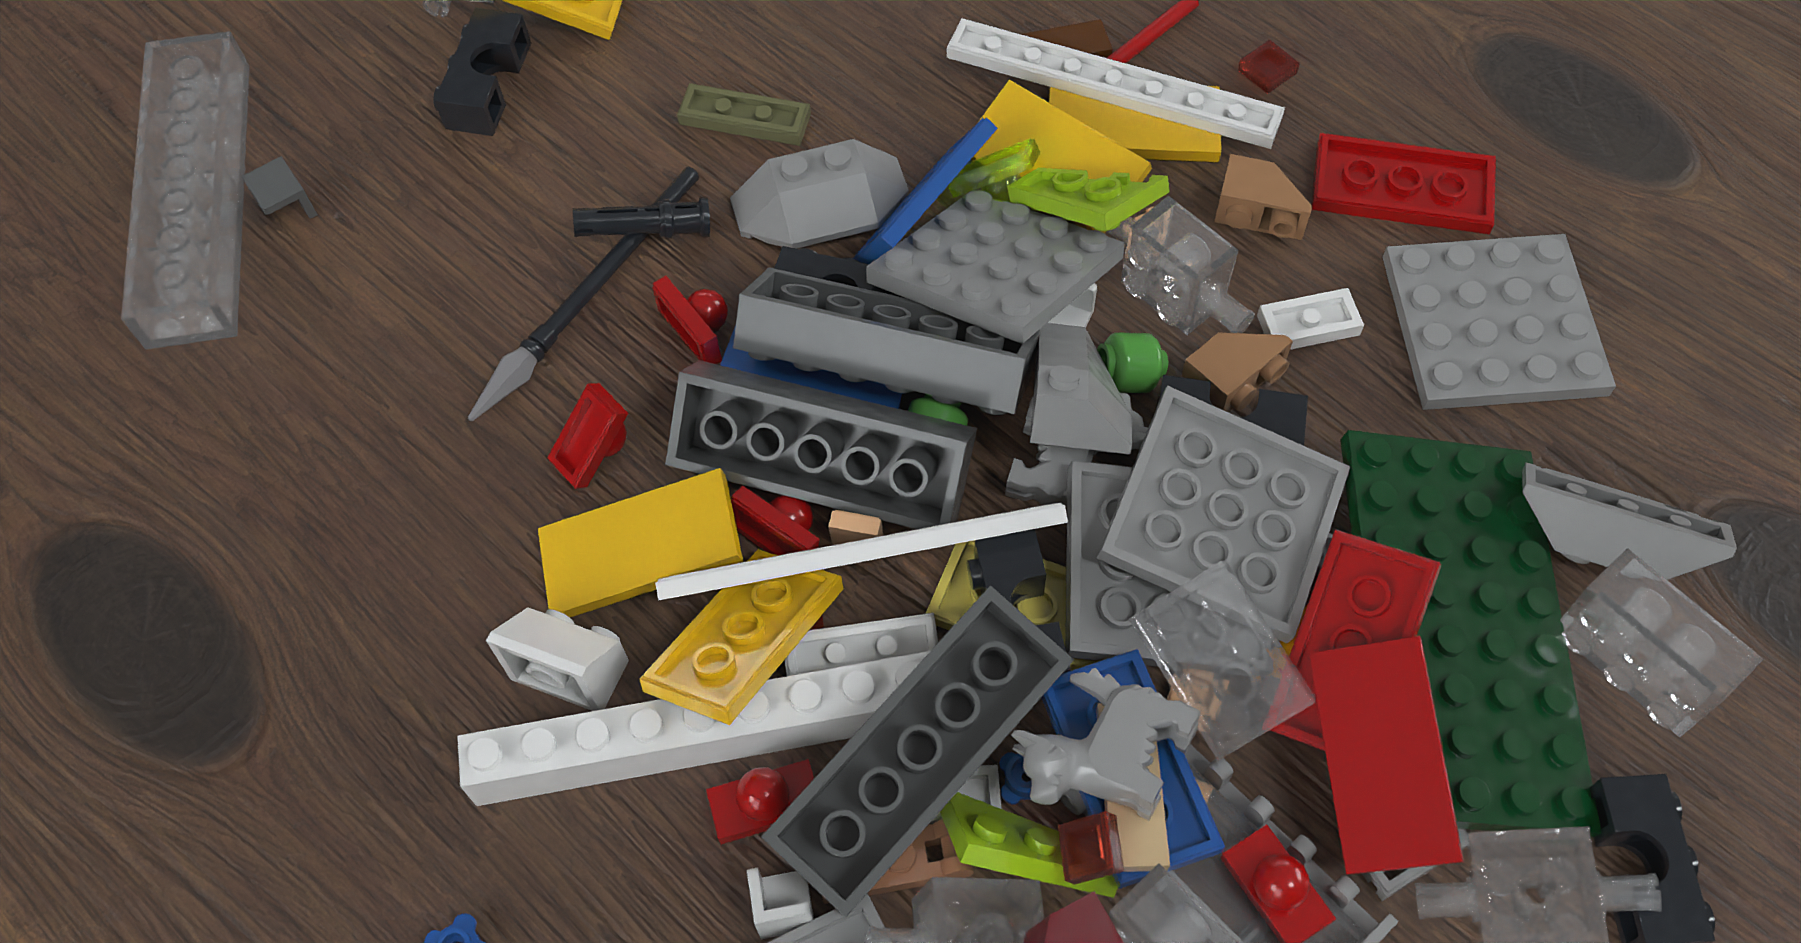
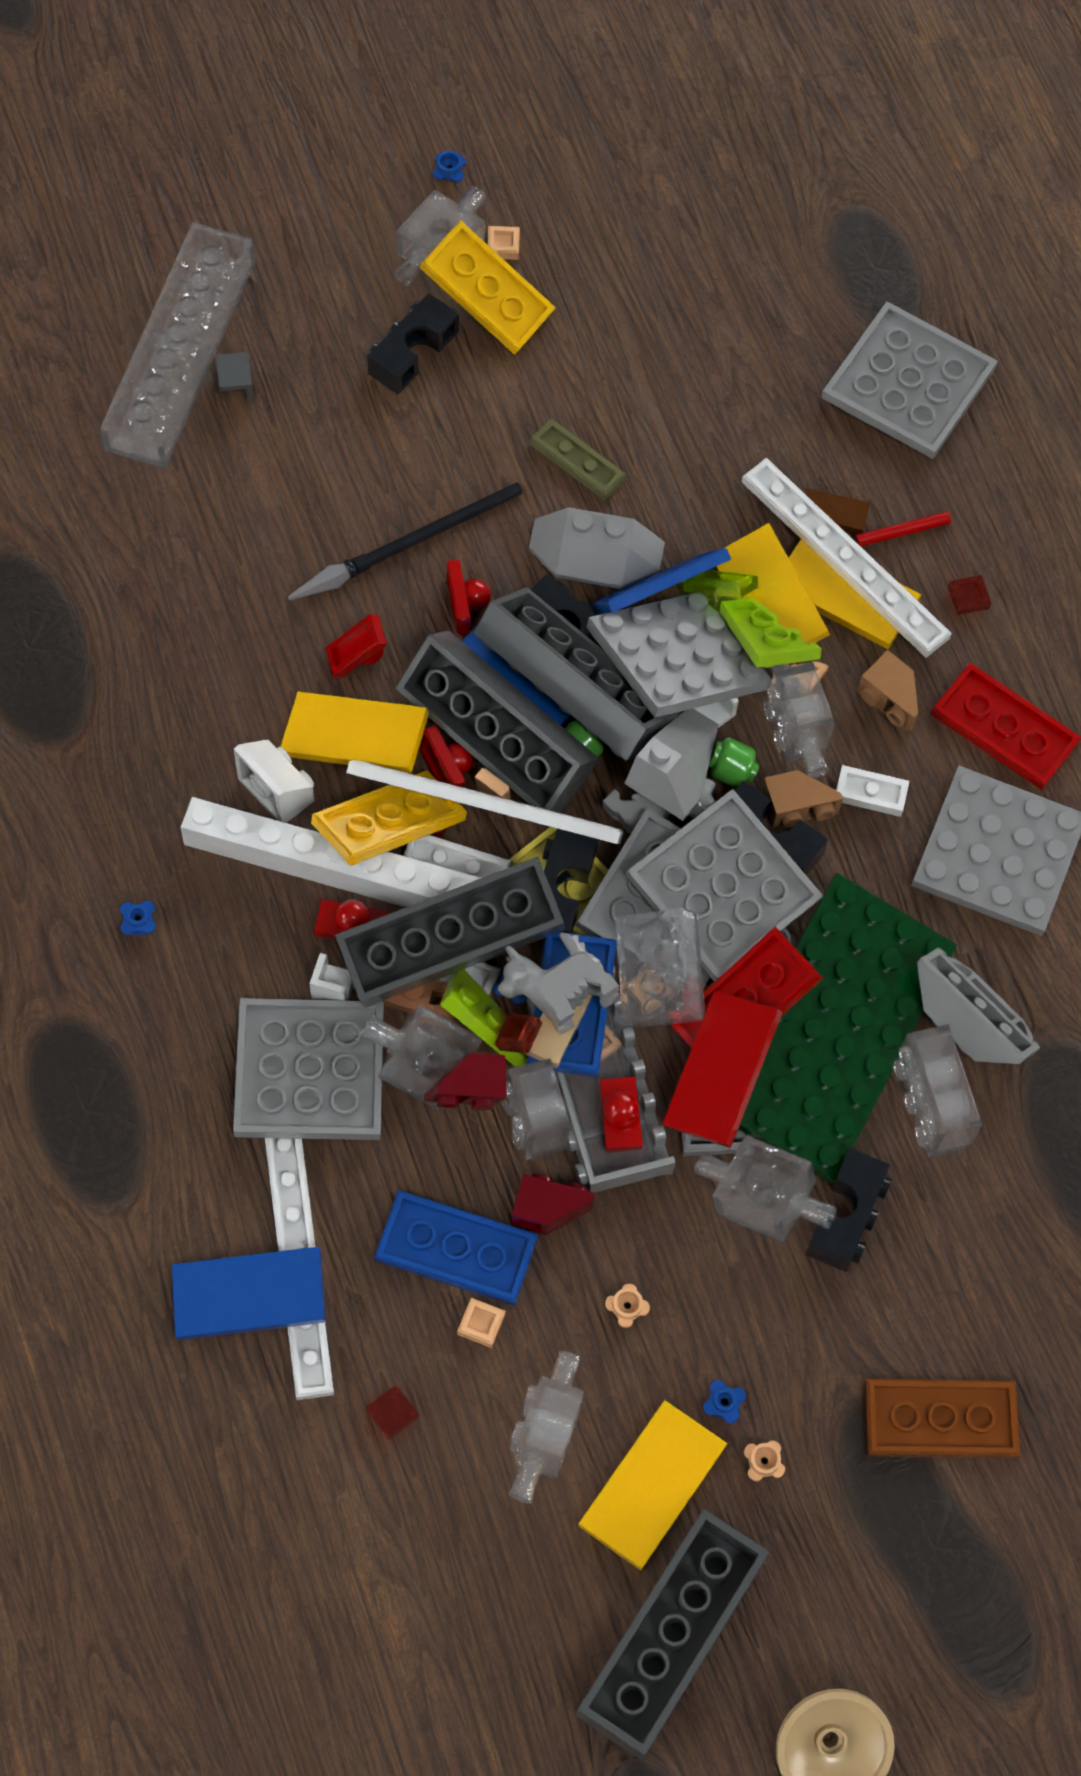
camera: 20 degrees right, 5 degrees up
(662, 218) = (479, 515): black pin -> none

